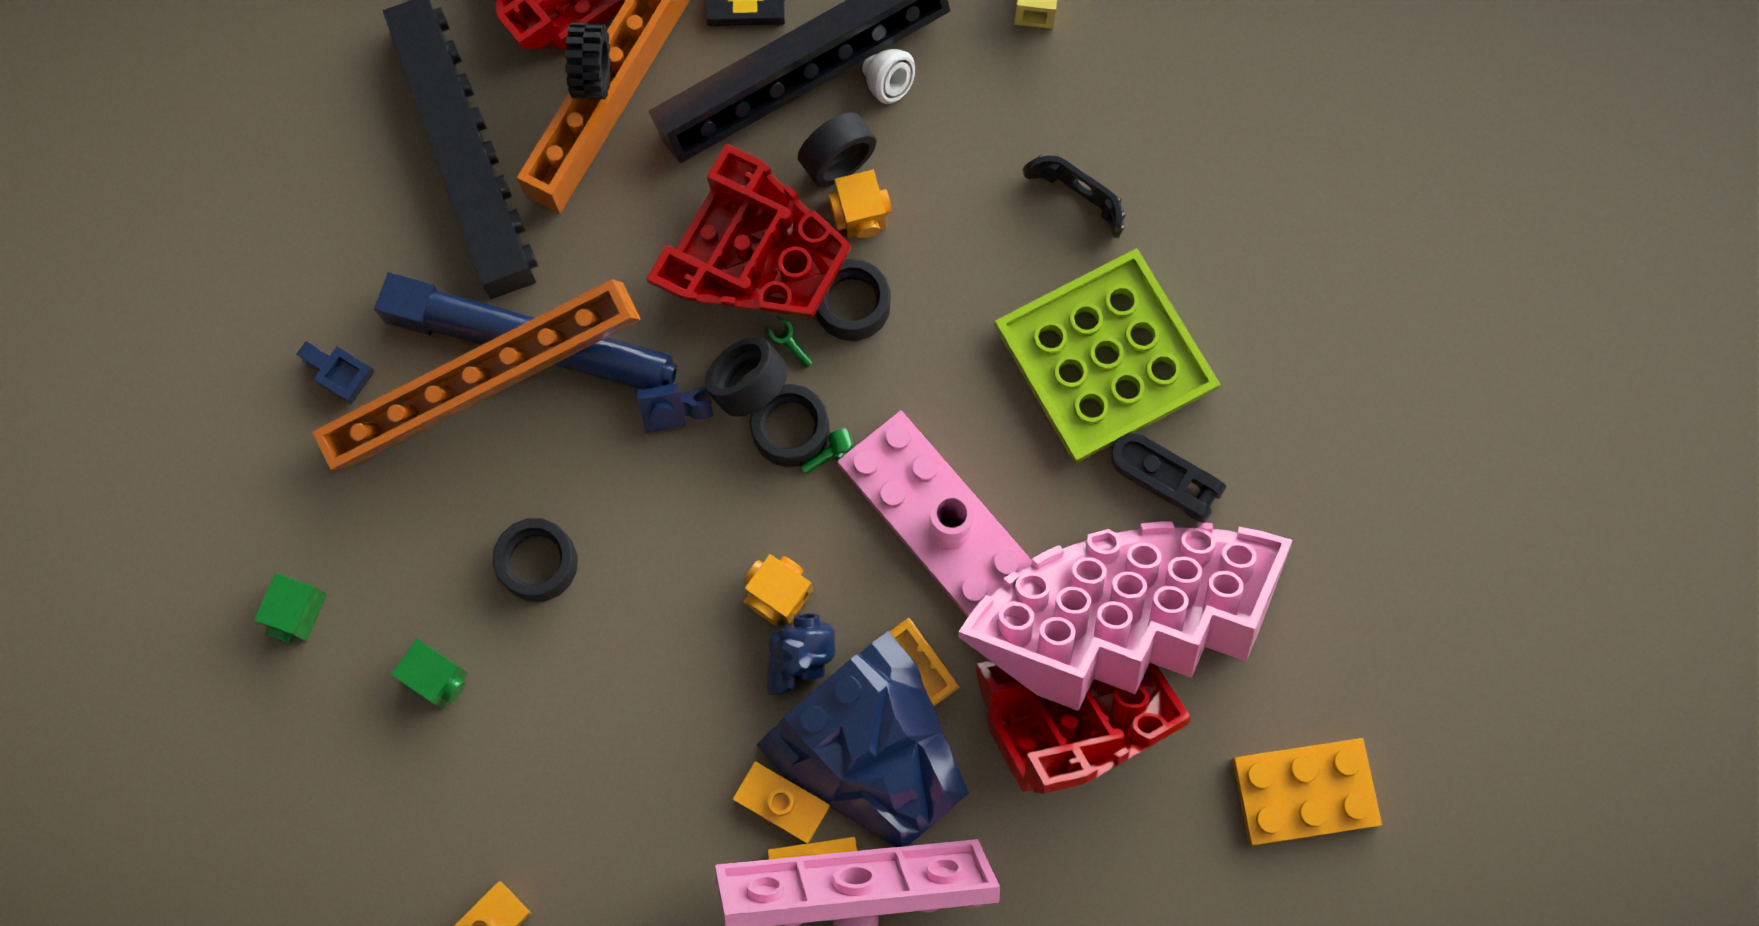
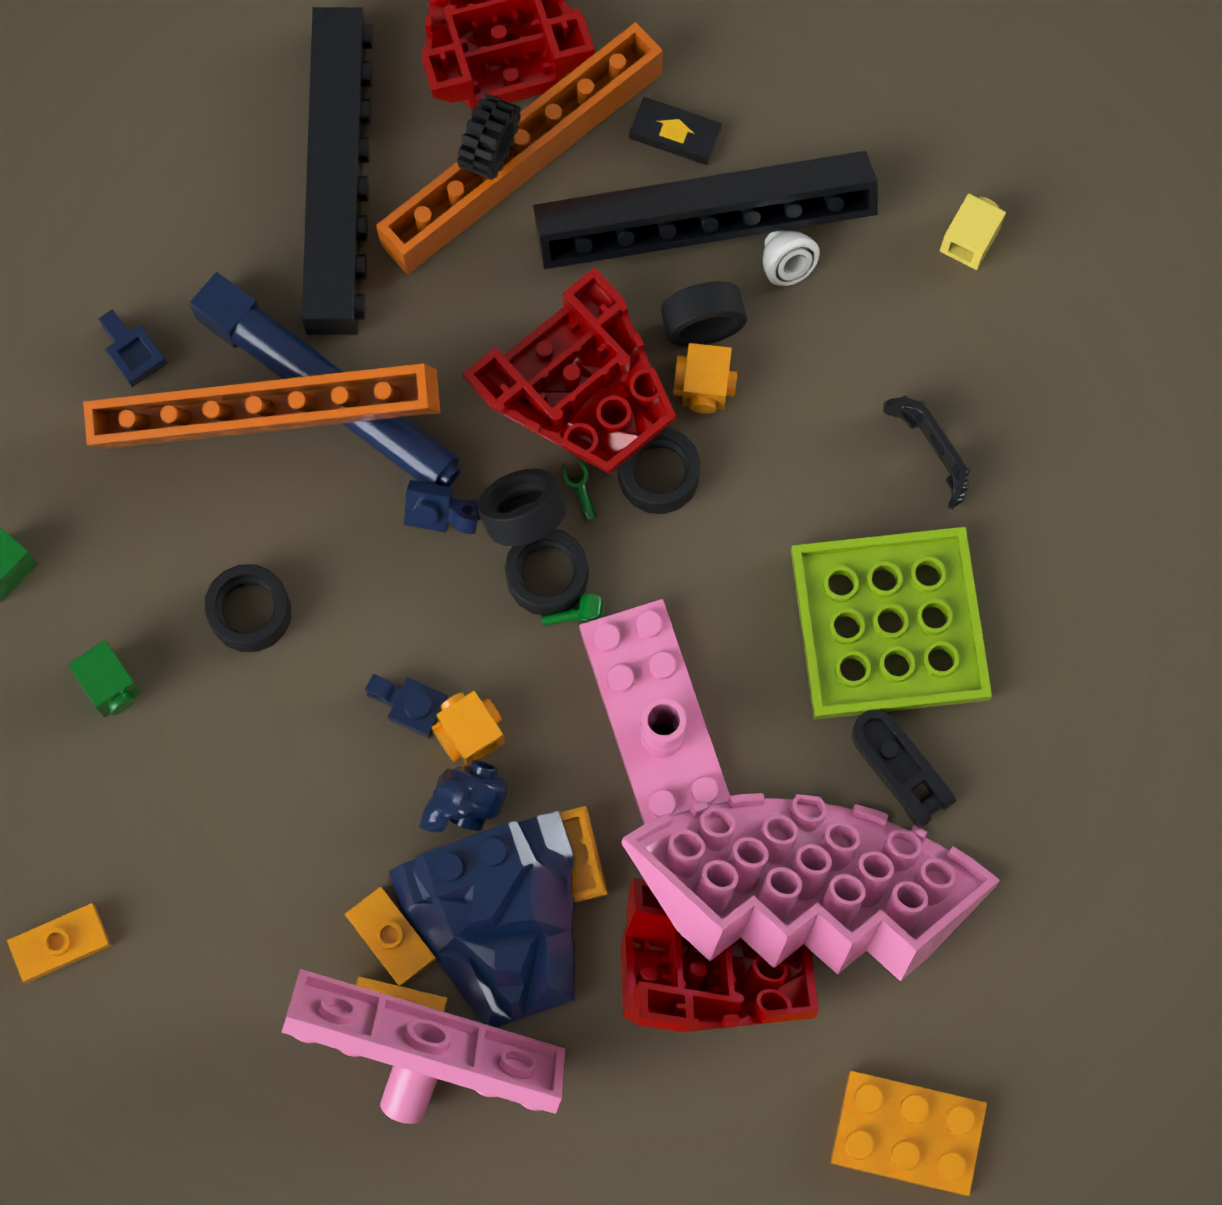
camera: 20 degrees right, 0 degrees up
(719, 589) = (412, 706): none -> dark blue plate

